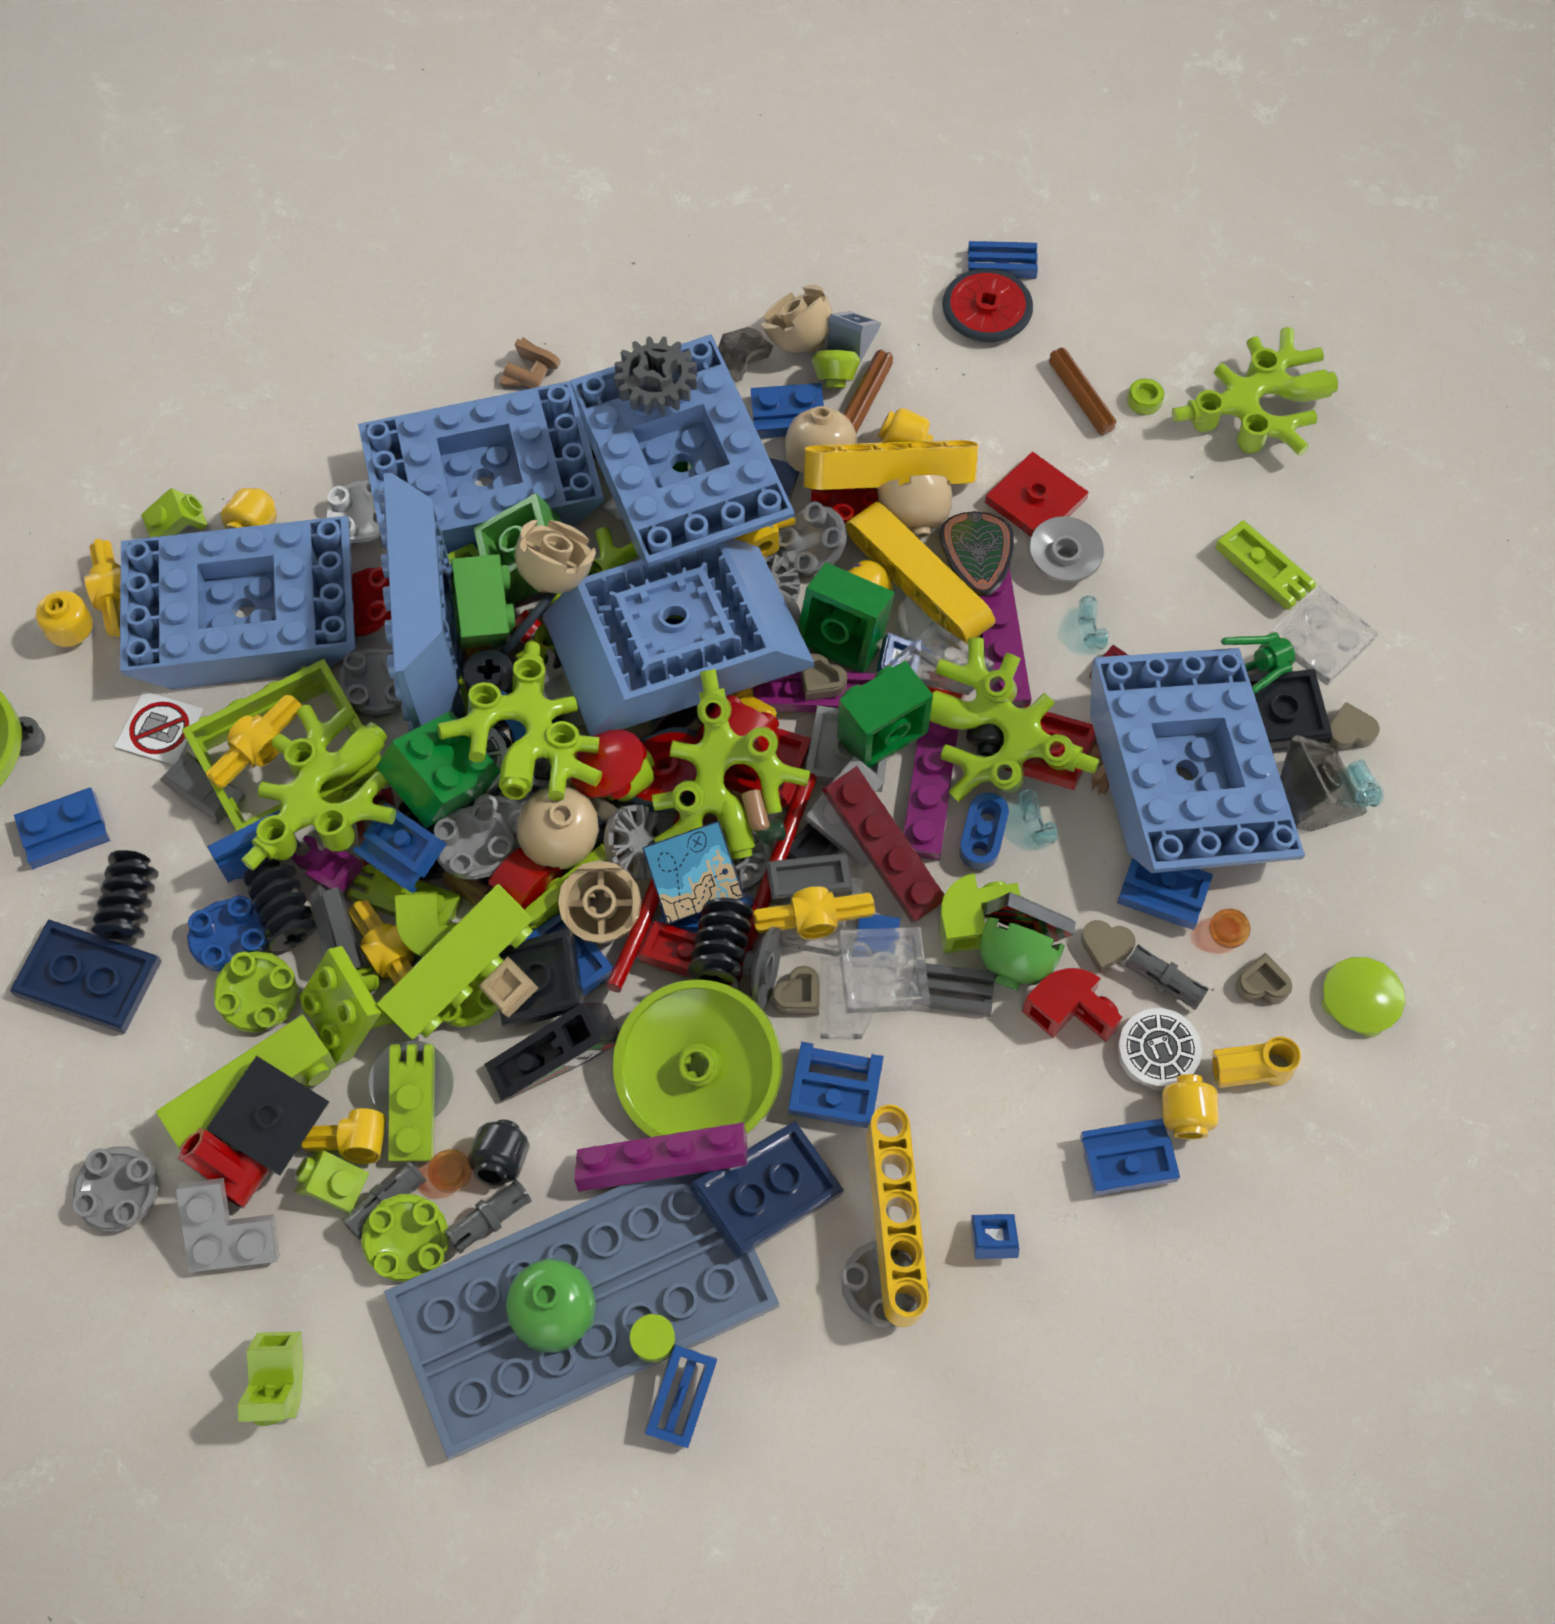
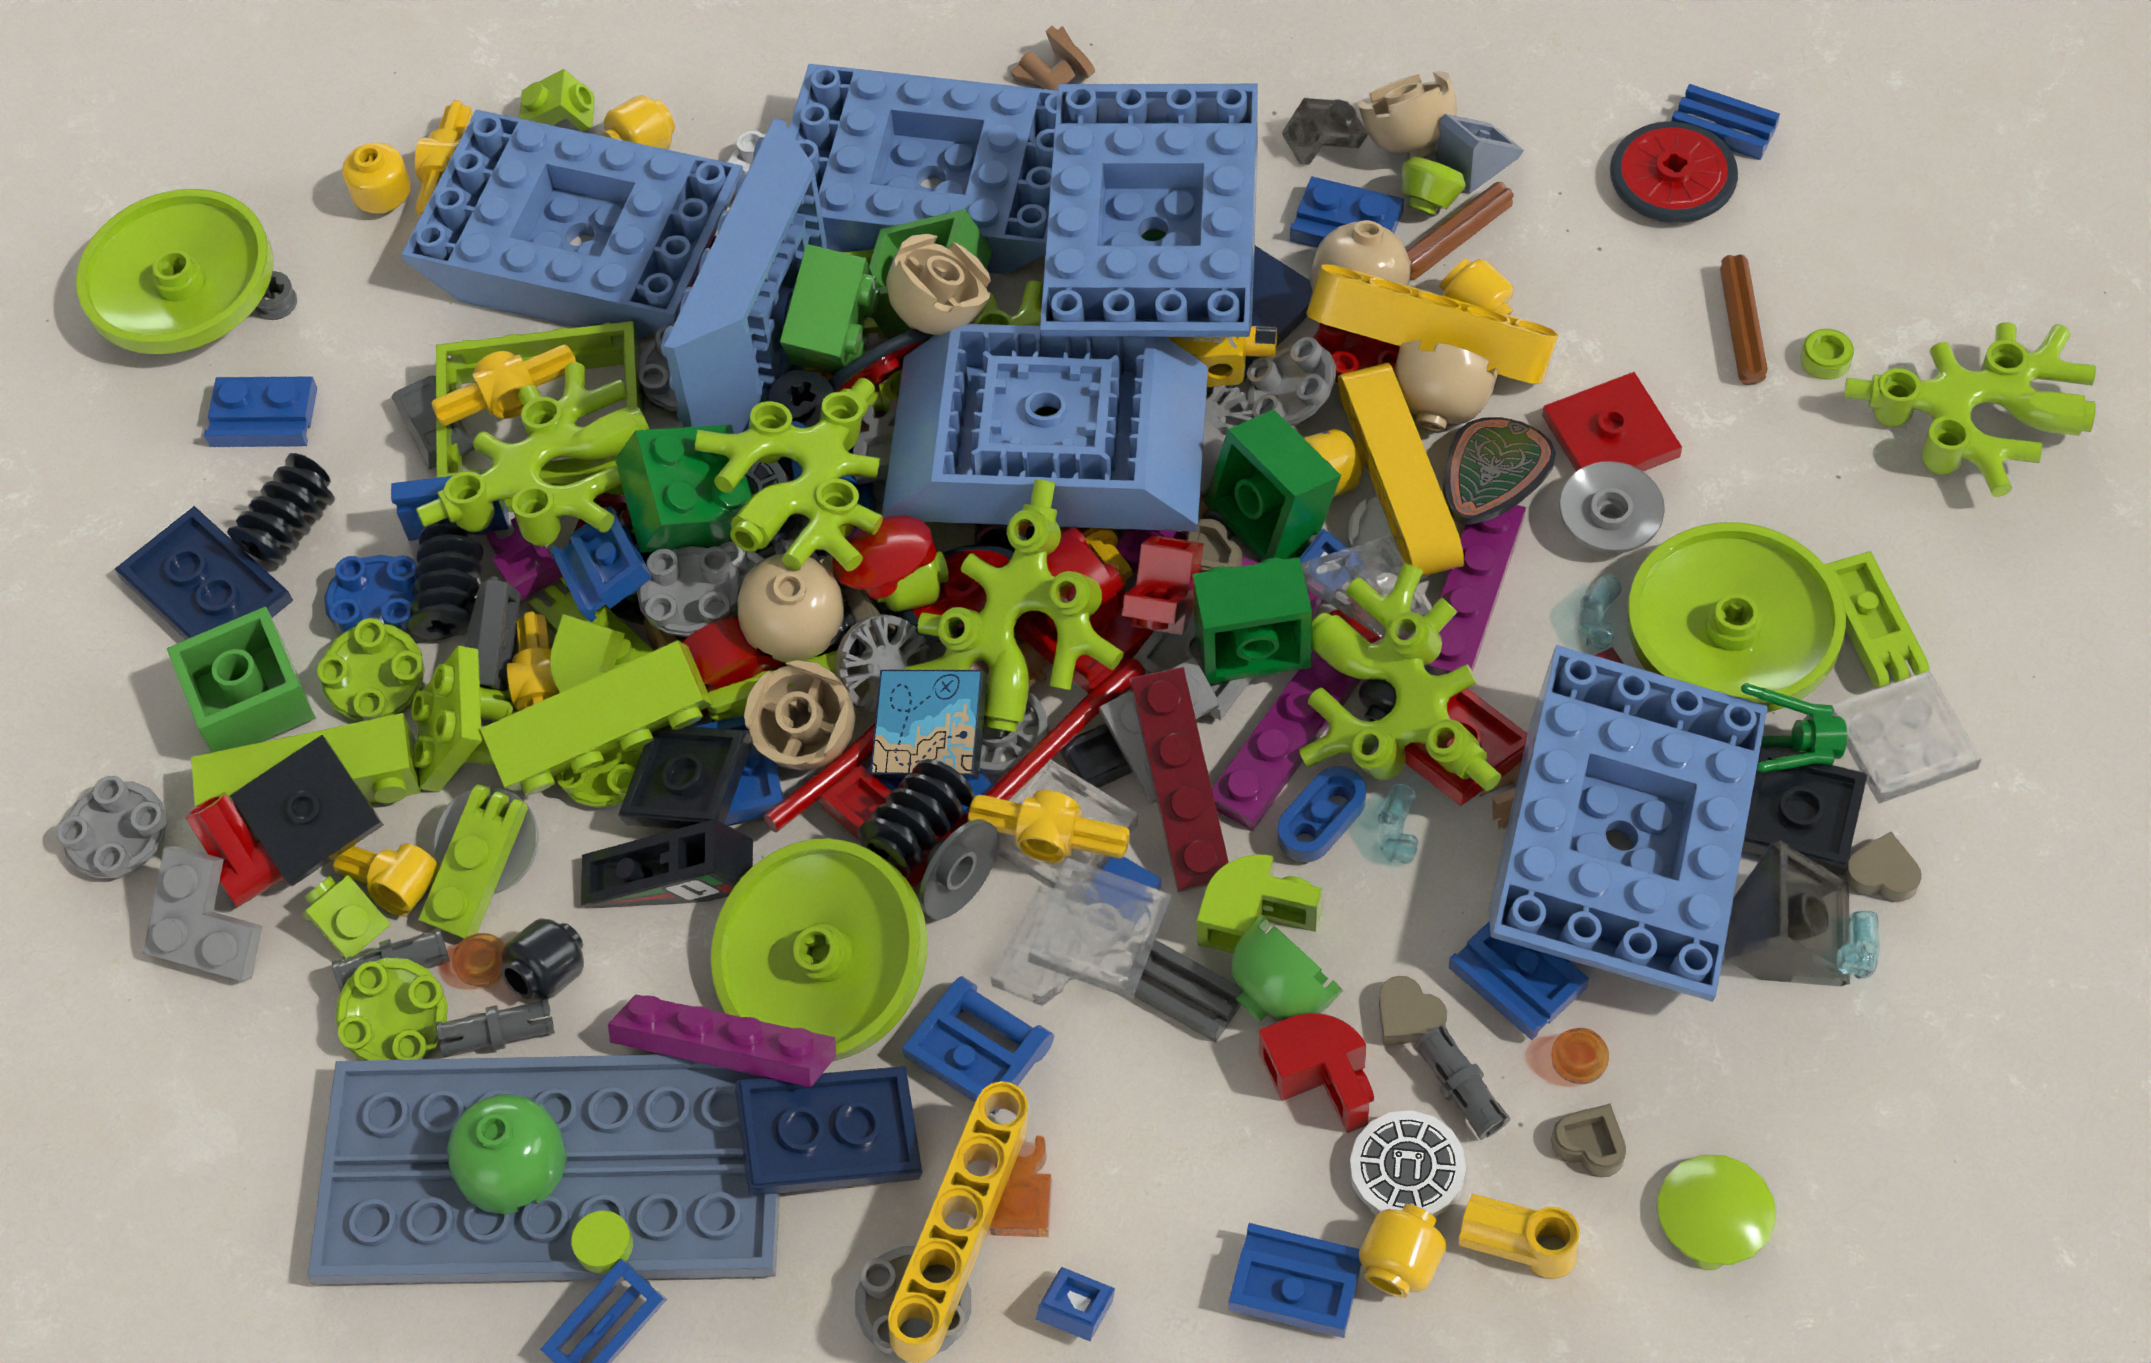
camera: 30 degrees right, 5 degrees down
(157, 727) = (412, 336): sticker -> none
(162, 1039) = (241, 682): none -> bright green brick
(273, 1378) = (171, 1105): lime brick -> none
(508, 987) = (644, 772): tan tile -> none
(654, 375) = (1129, 113): dark grey gear -> none
(758, 819) = (1036, 690): medium nougat arm -> none
(792, 875) = (1090, 784): dark grey tile -> none
(799, 993) = (991, 919): dark tan tile -> none
(808, 712) = (1164, 585): none -> red brick
(929, 1180) = (1026, 1198): none -> clear orange plate
(1028, 914) = (1316, 937): tile -> none
(1183, 592) = (1736, 610): none -> lime dish

